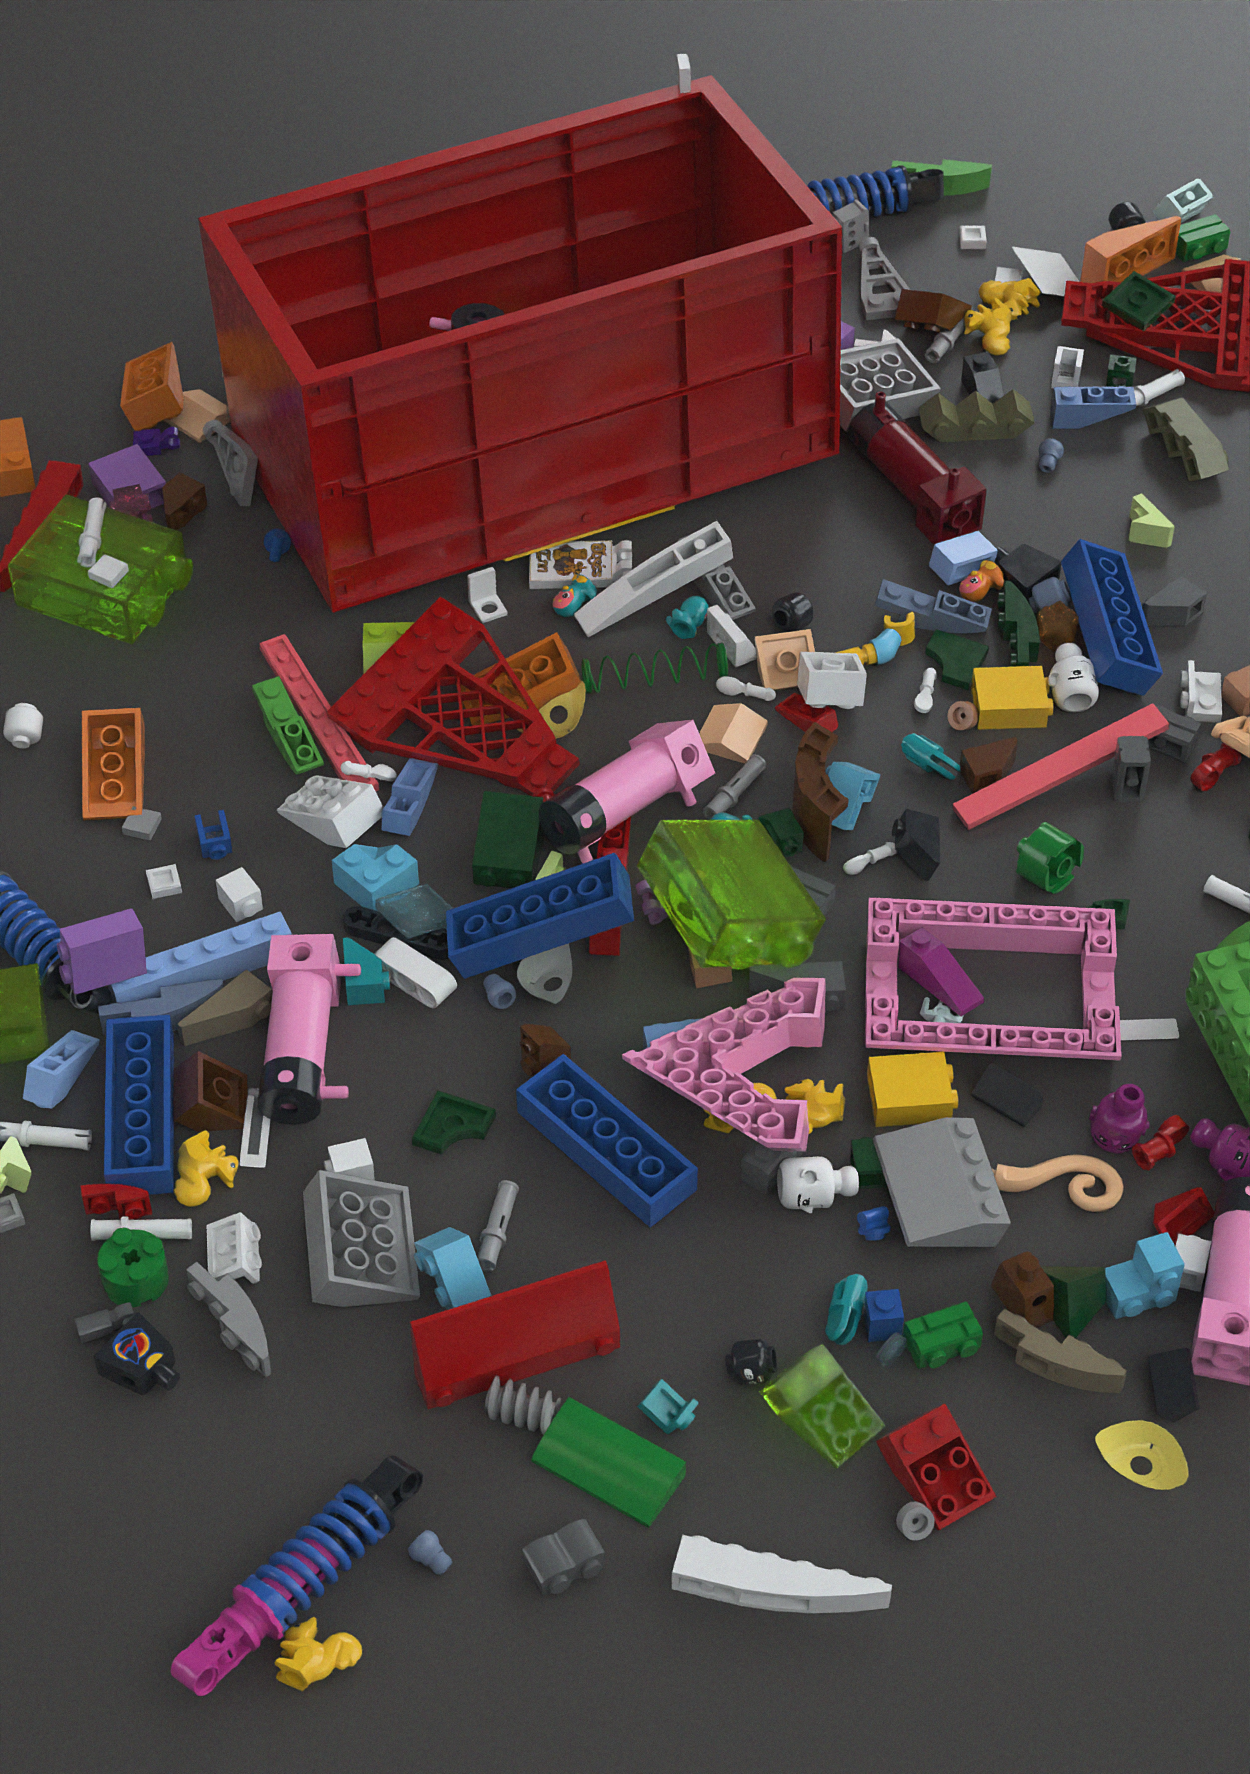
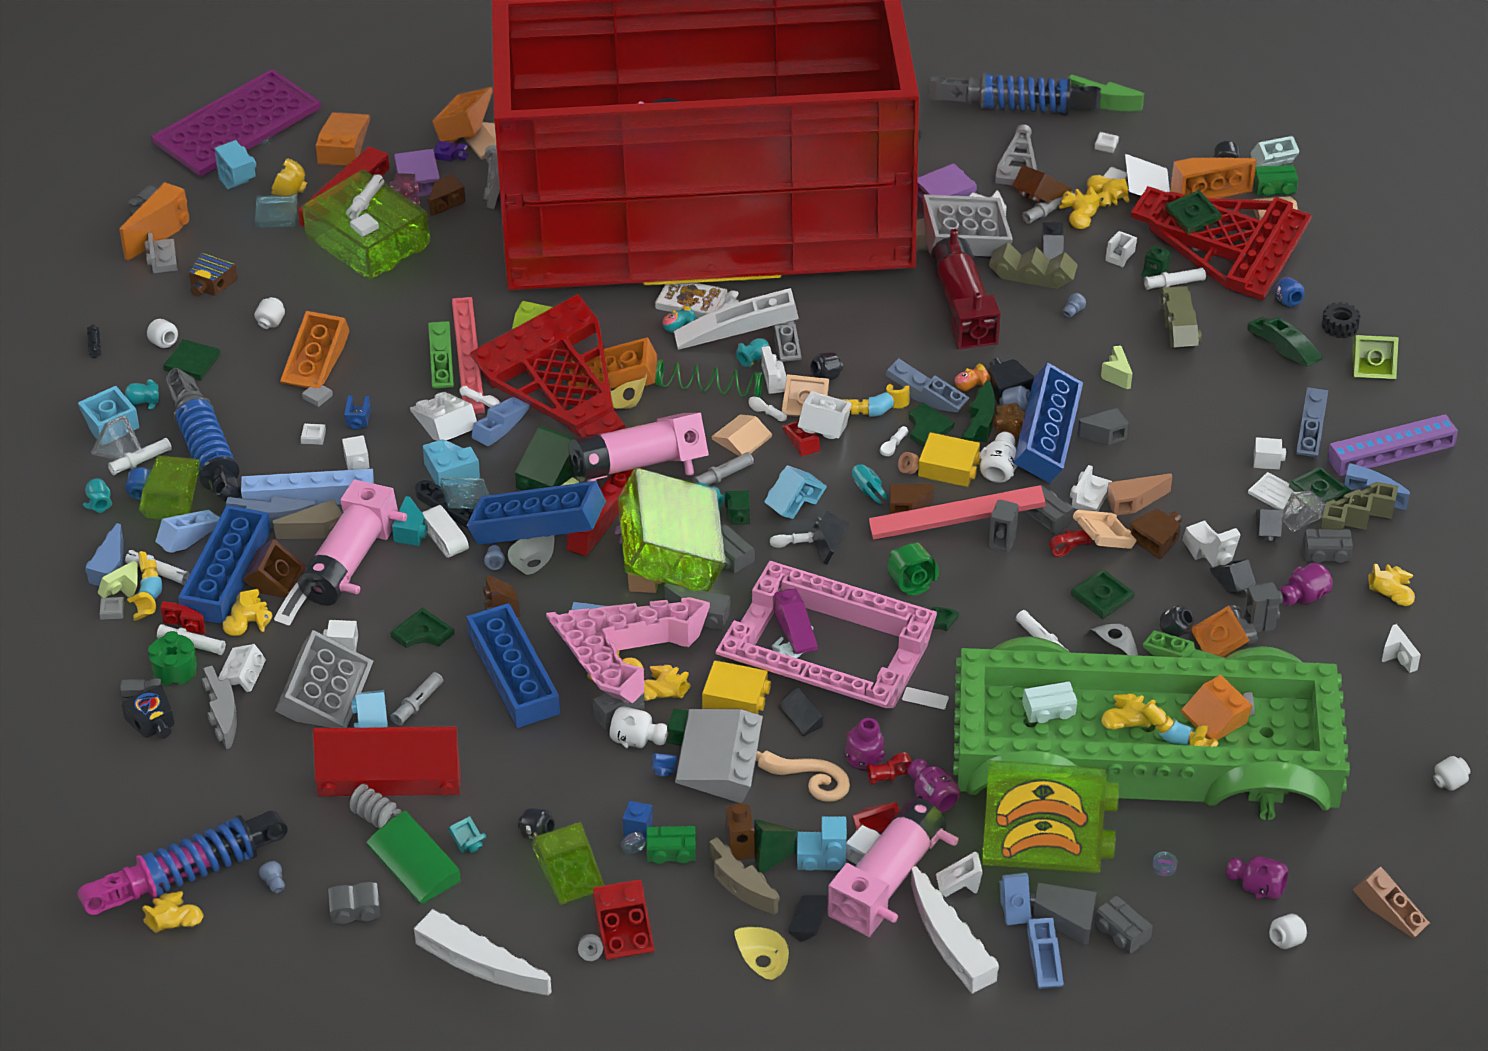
camera: 20 degrees right, 5 degrees down
(48, 1172) = (150, 588): none -> yellow piece
(102, 951) = (237, 459): medium lavender brick -> none
(276, 542) = (495, 237): blue plate -> none
(483, 592) = (619, 302): white bracket -> none
(814, 796) = (766, 476): reddish brown panel -> none
(846, 1308) = (616, 809): teal arm -> none
(854, 223) = (1013, 114): light grey piece -> none
(960, 556) = (966, 355): light blue brick -> none
(1088, 405) = (1119, 277): medium blue slope -> none

